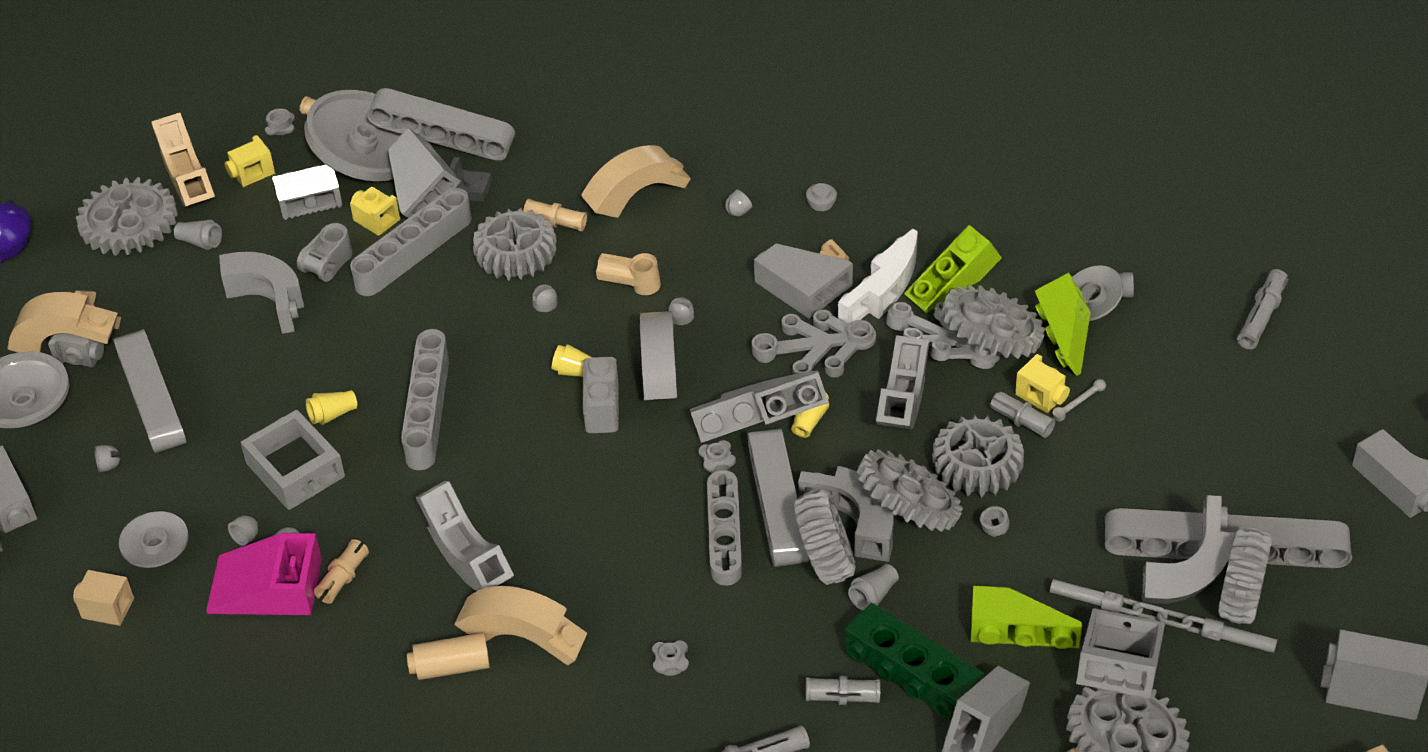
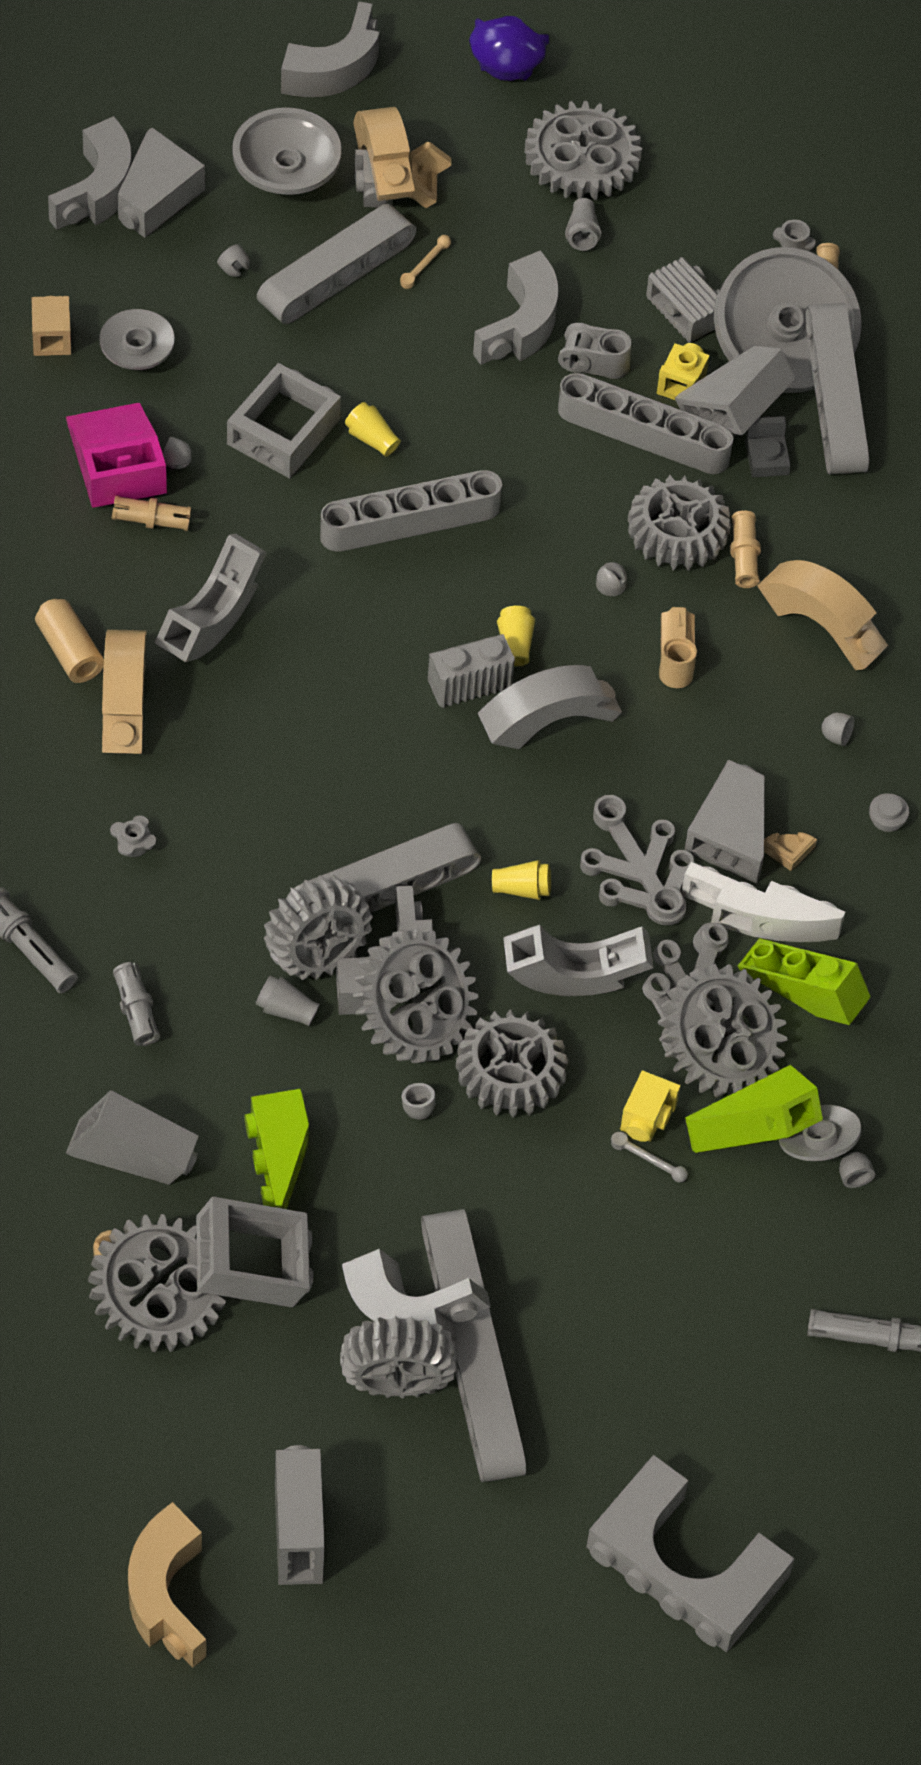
camera: 65 degrees right, 10 degrees up
(181, 161) = (674, 177): tan arch -> none
(186, 354) = (407, 280): none -> tan hinge
(243, 529) = (181, 412): light grey hinge -> none
(250, 162) = (712, 231): light yellow brick -> none
(682, 311) = (633, 715): light grey hinge -> none
(717, 456) = (424, 817): light grey plate -> none
(724, 527) = (331, 847): light grey beam -> none
(759, 403) = (500, 816): light grey slope -> none
(893, 646) = (208, 1006): dark green brick -> none
(1023, 414) = (598, 1100): light grey axle -> none
(1211, 628) = (343, 1247): light grey piece -> none

